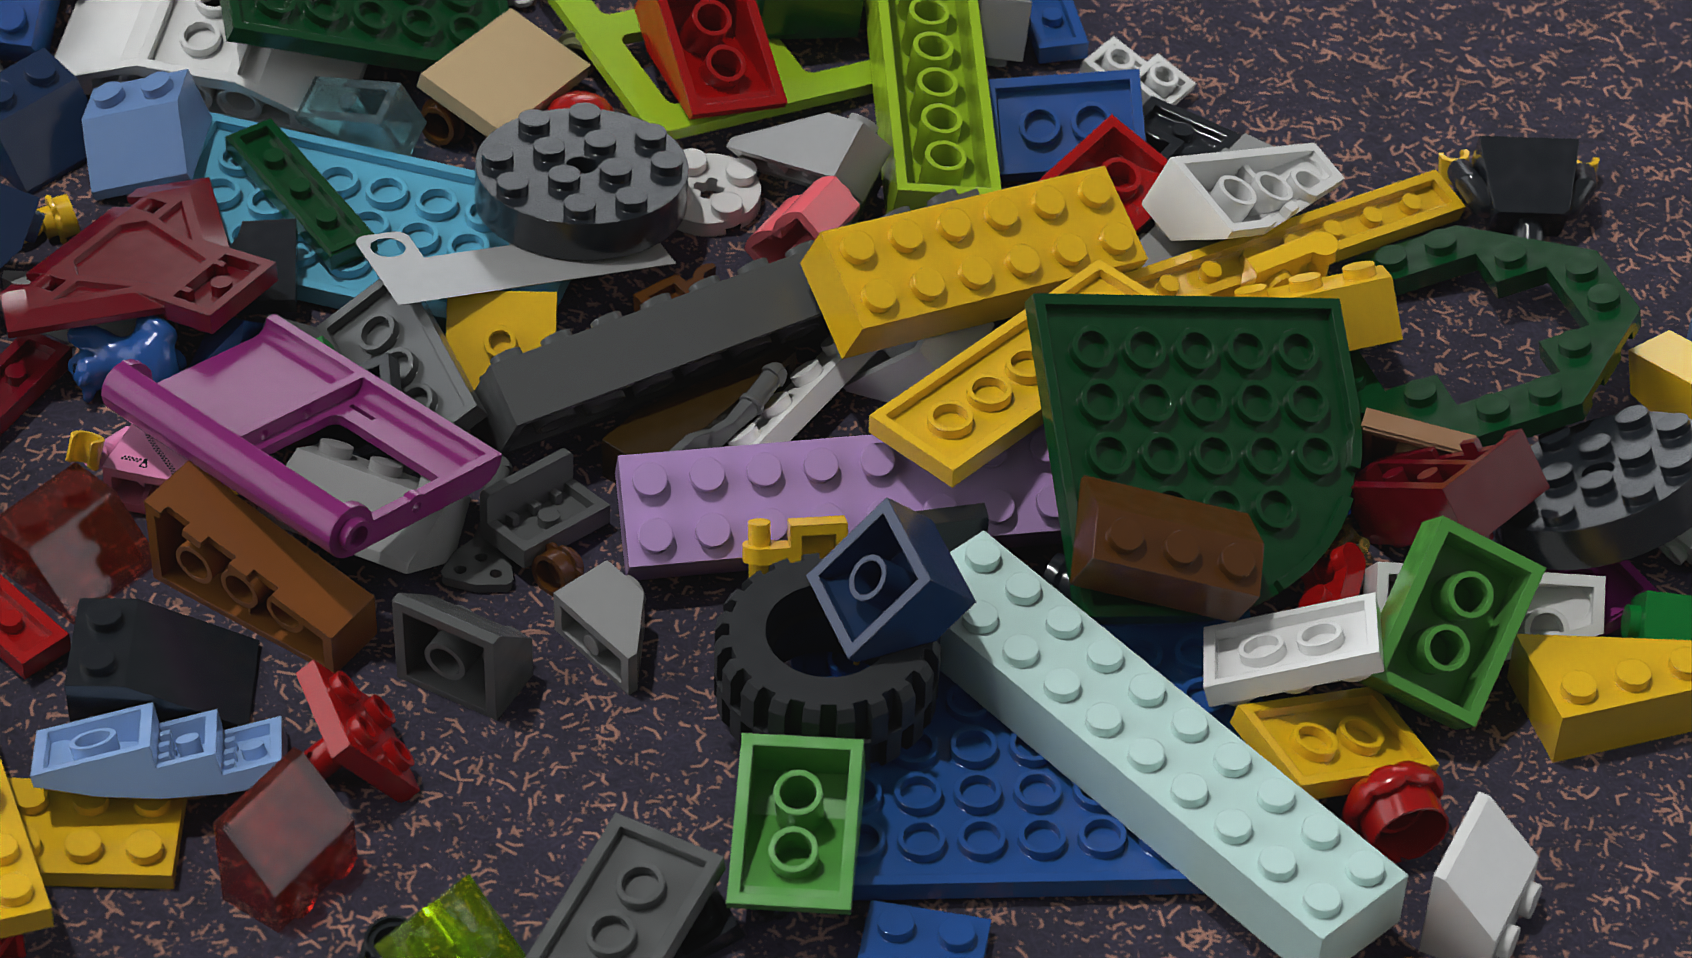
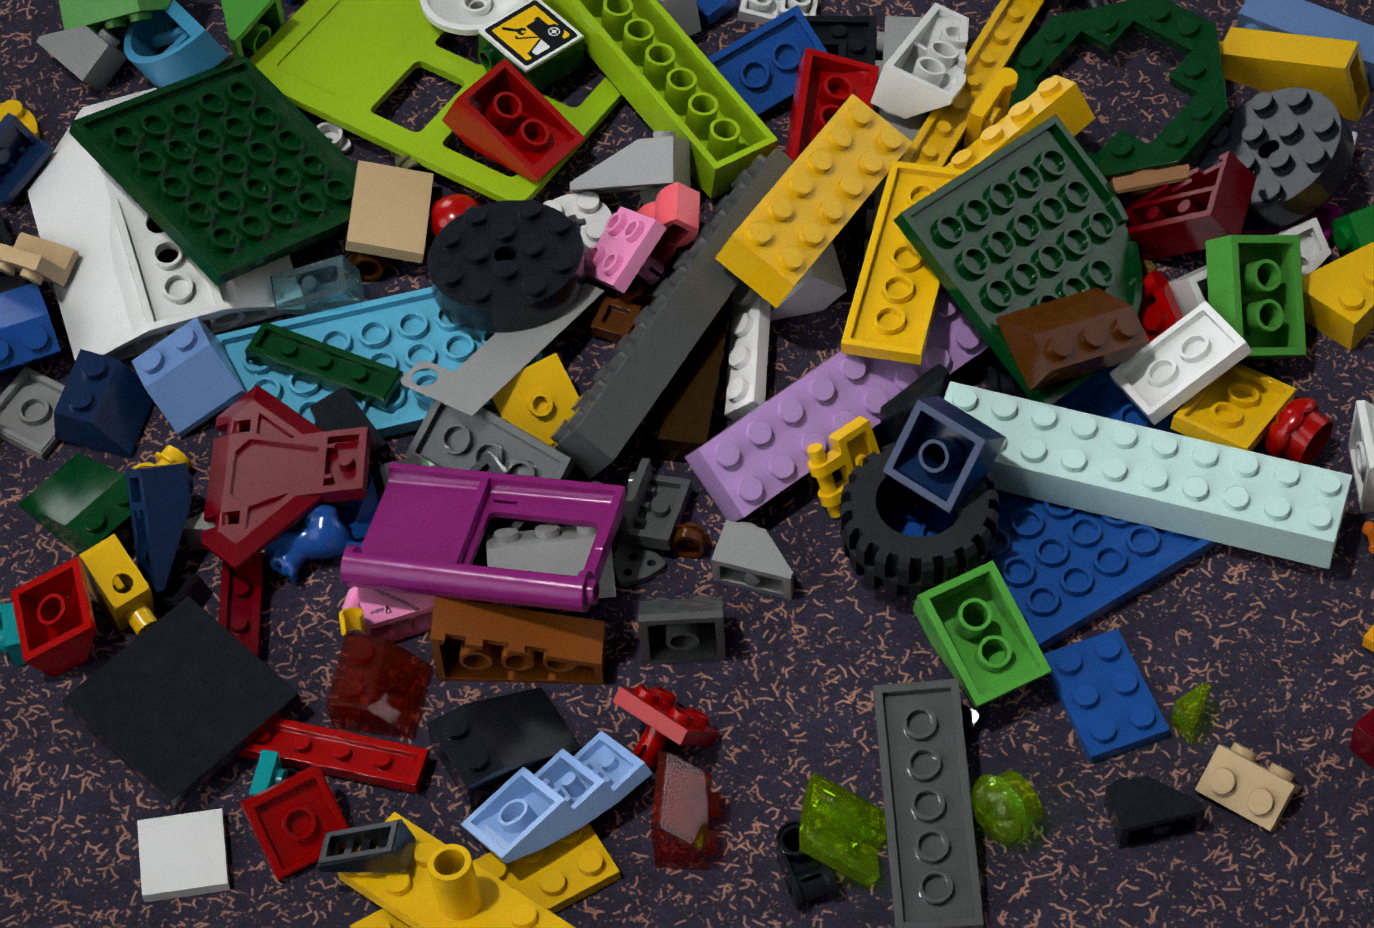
camera: 25 degrees left, 10 degrees up
(729, 229) = (625, 251): none -> bright pink plate
(749, 406) = (719, 415): dark grey piece -> none

